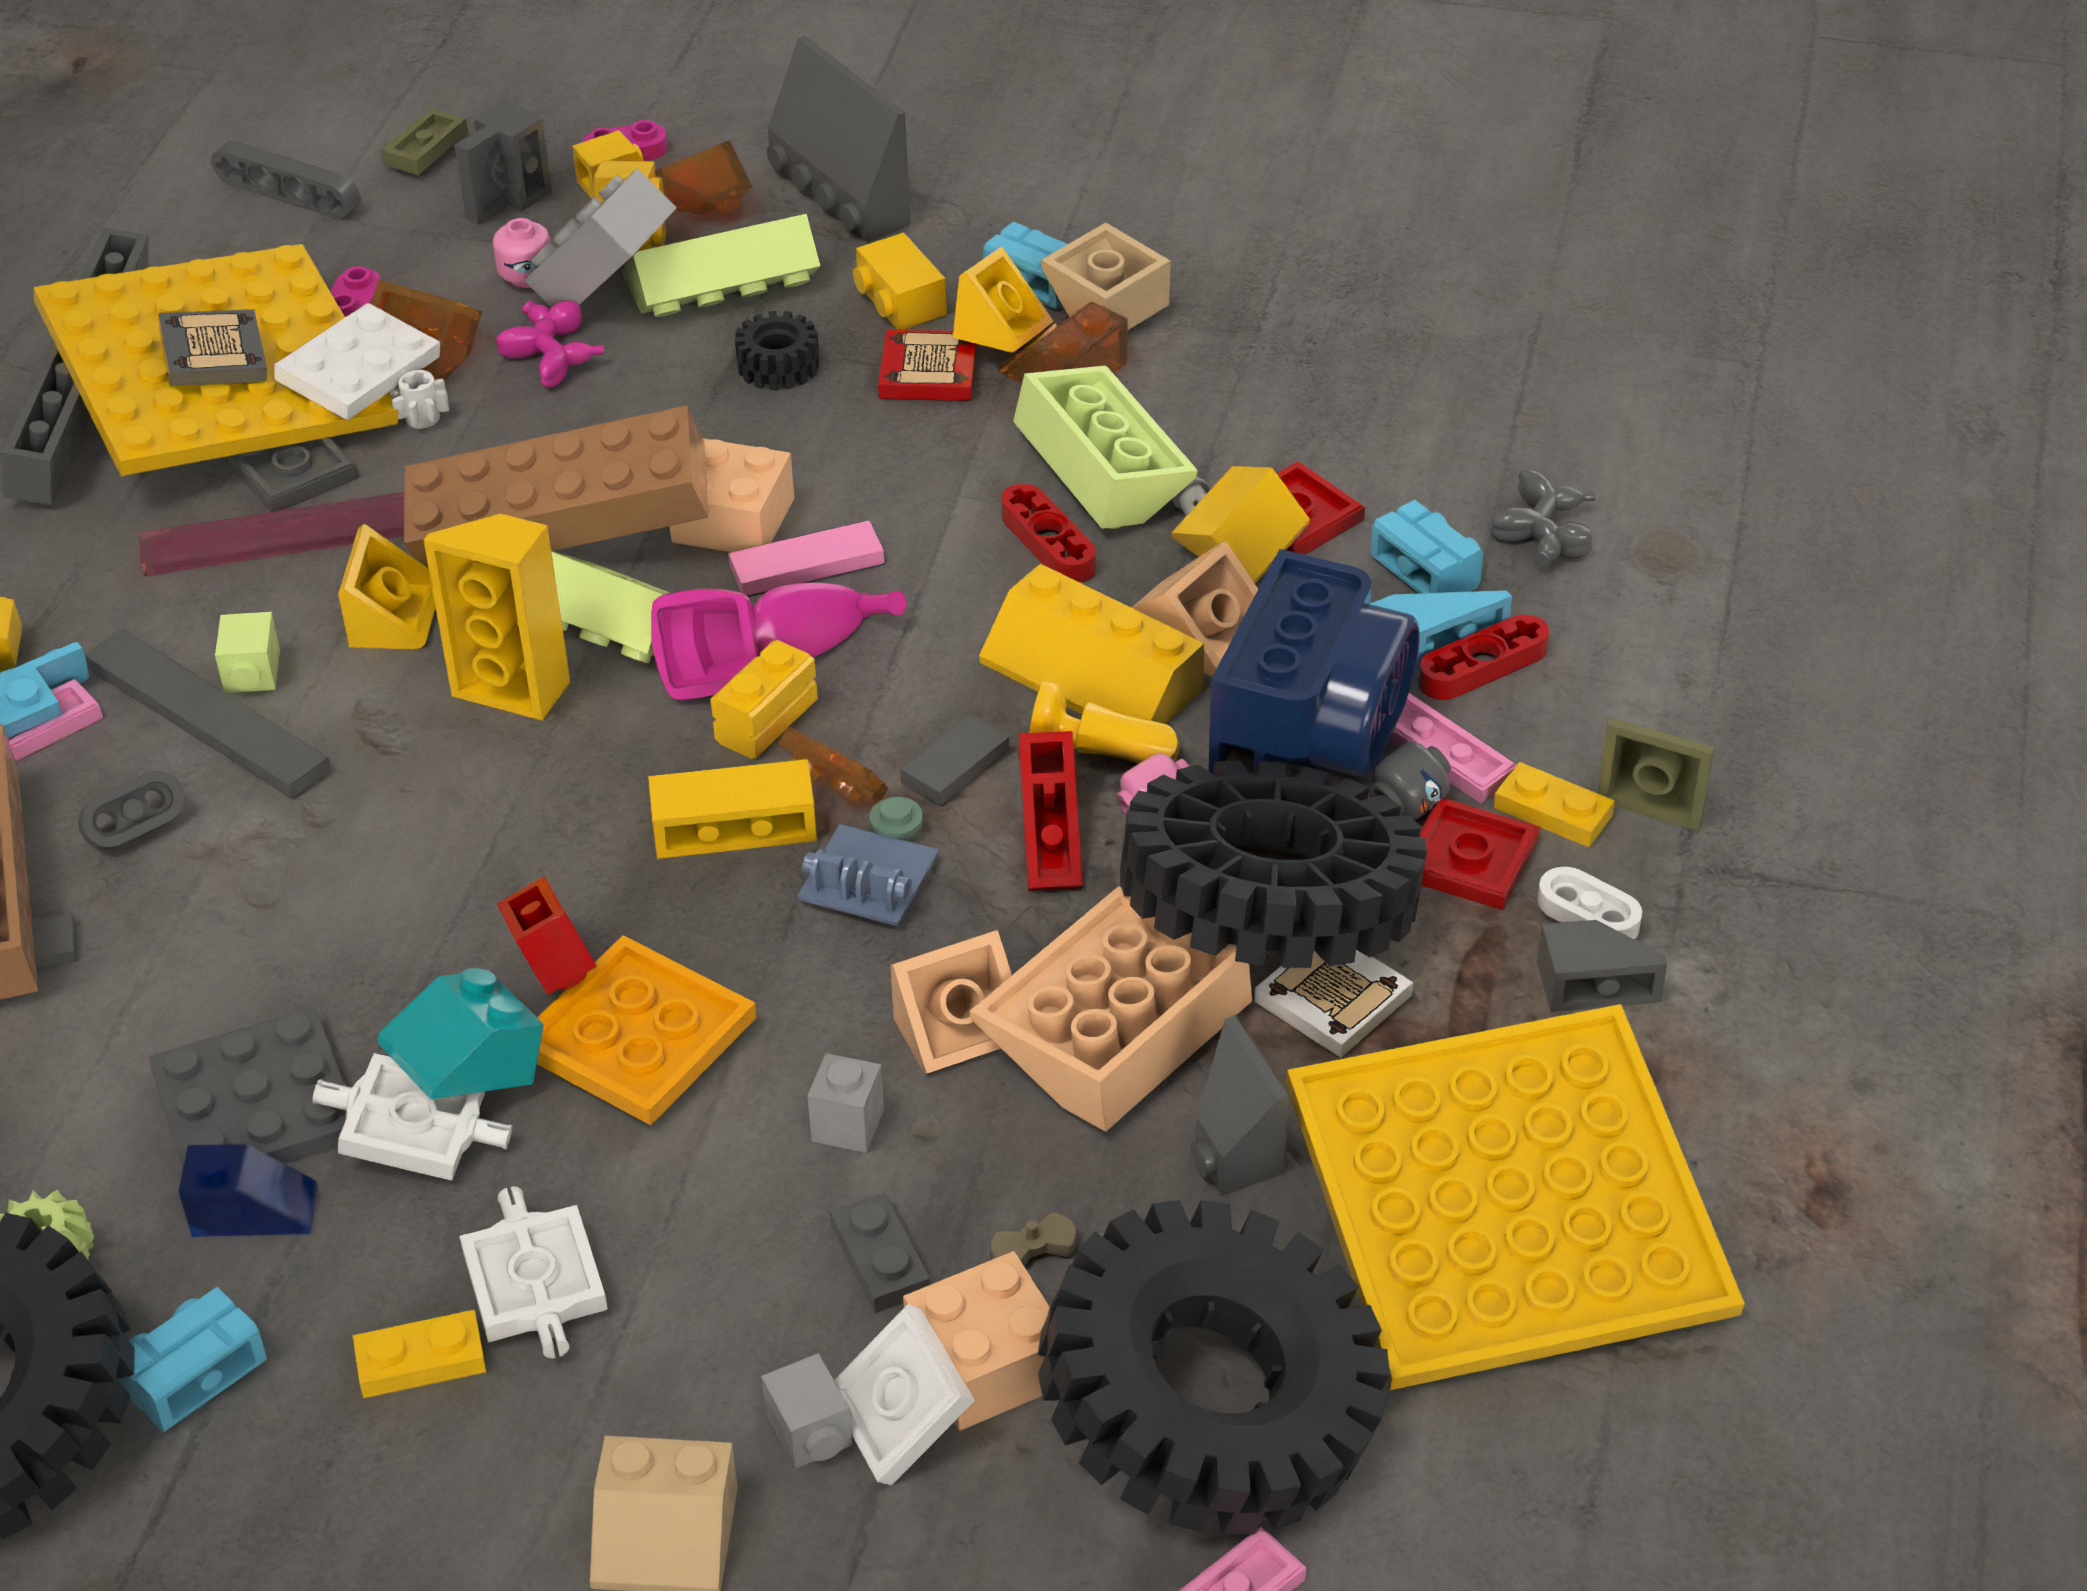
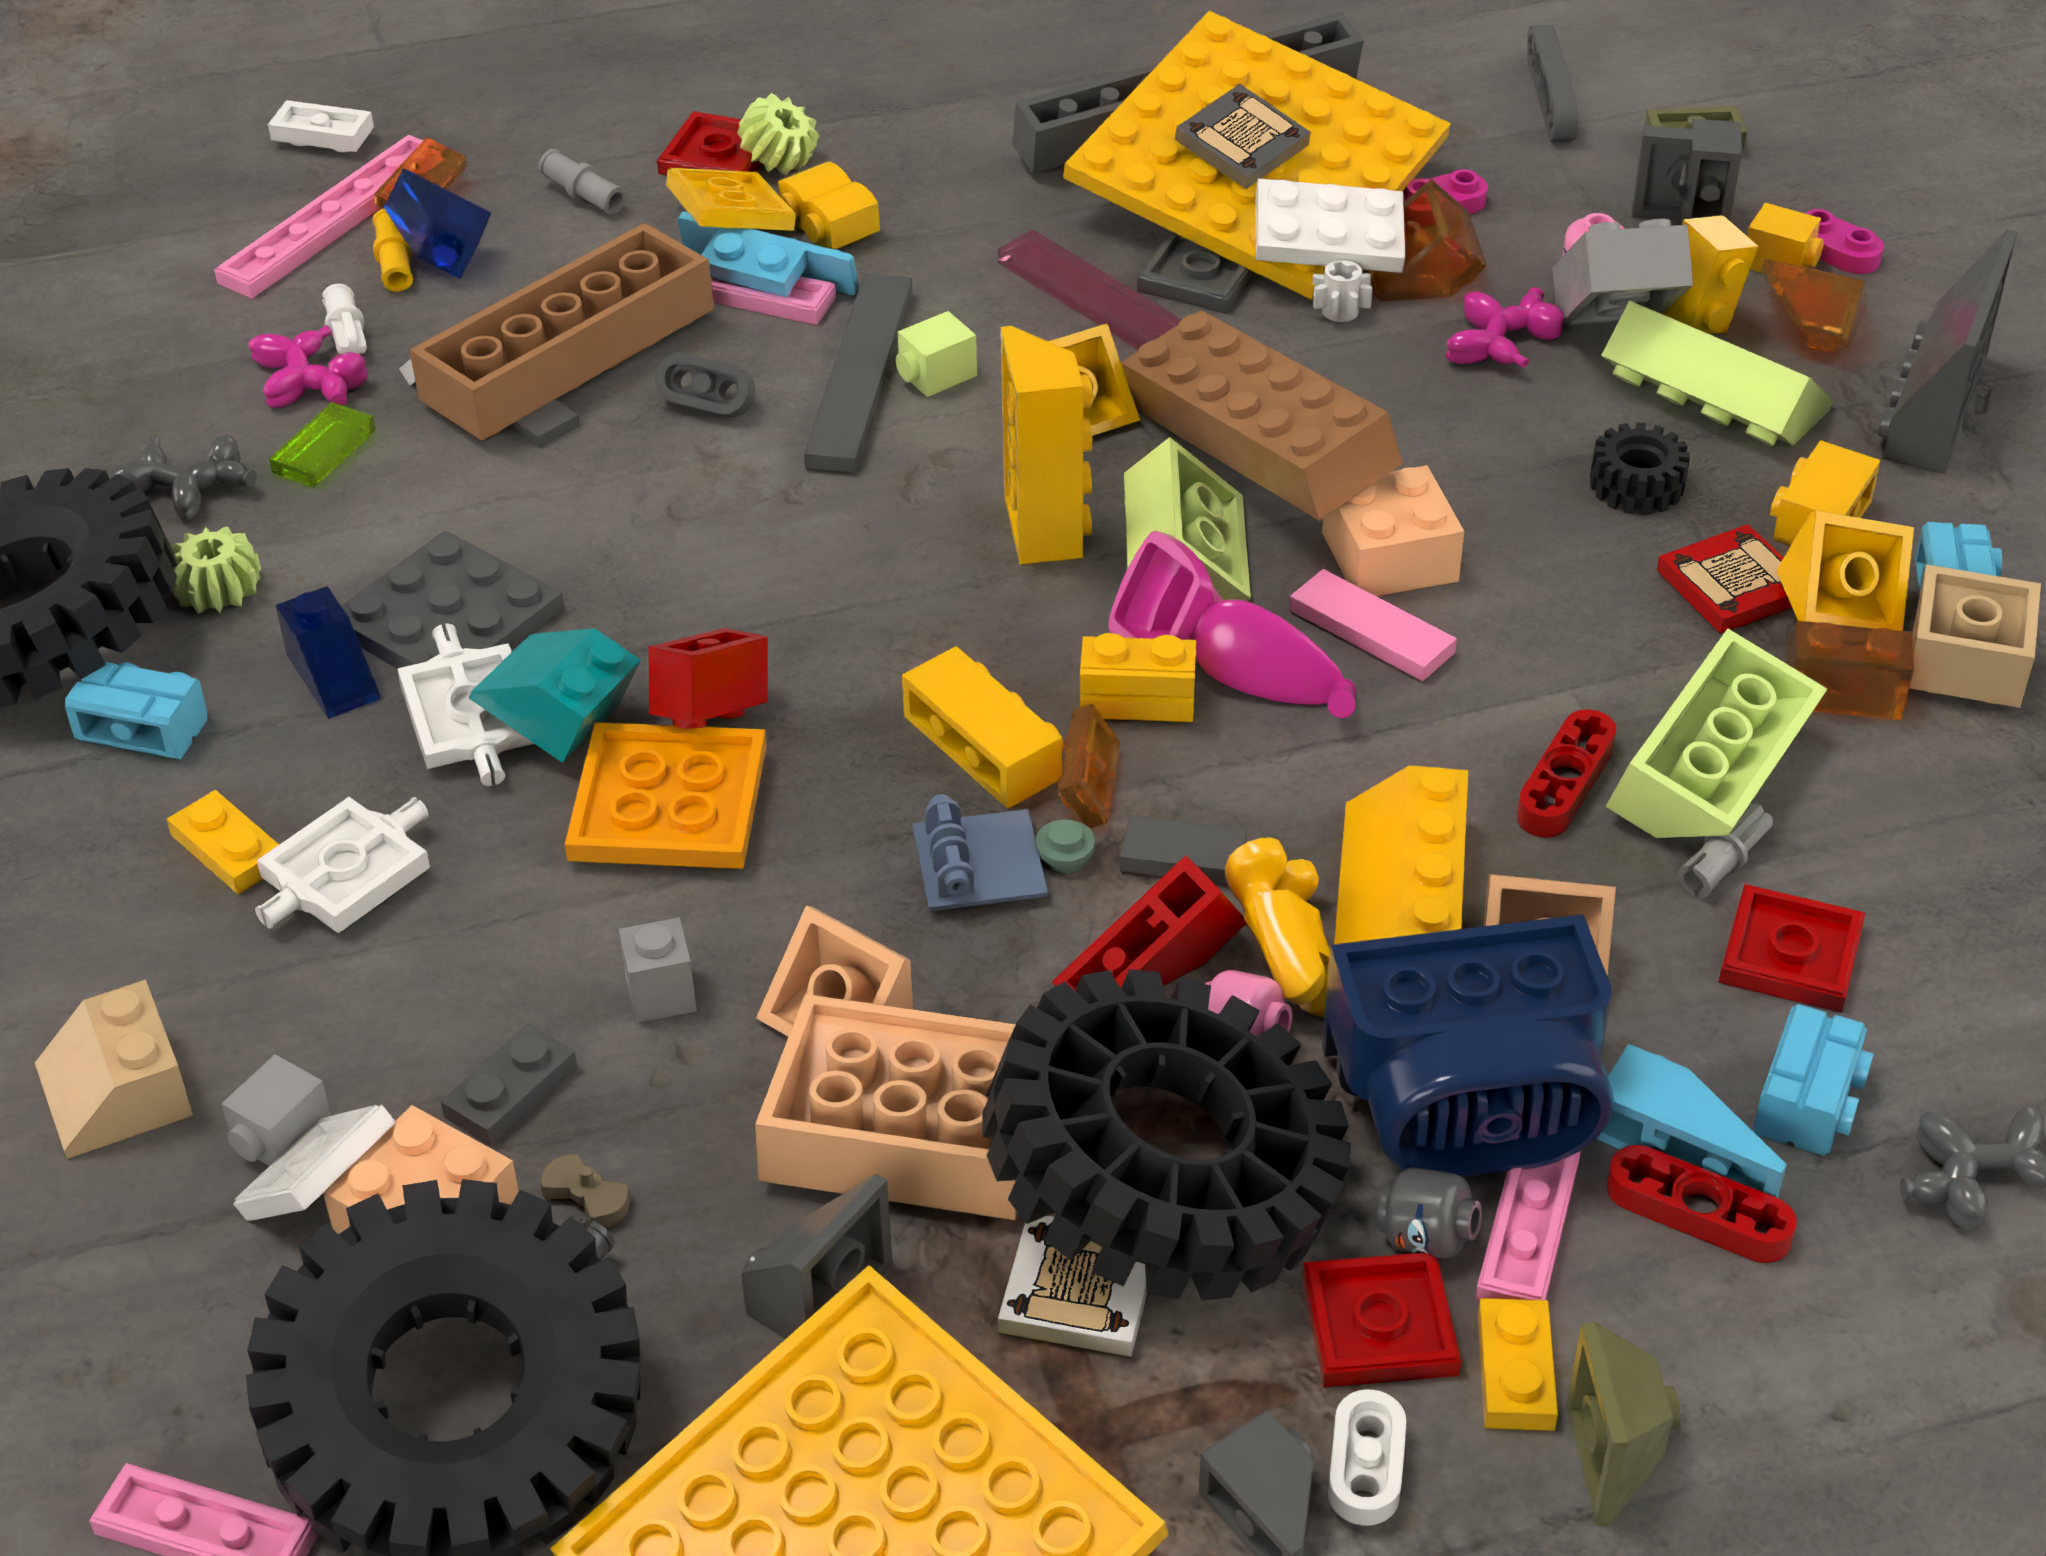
camera: 60 degrees right, 0 degrees up
(1250, 513) = (1696, 908): yellow slope -> none

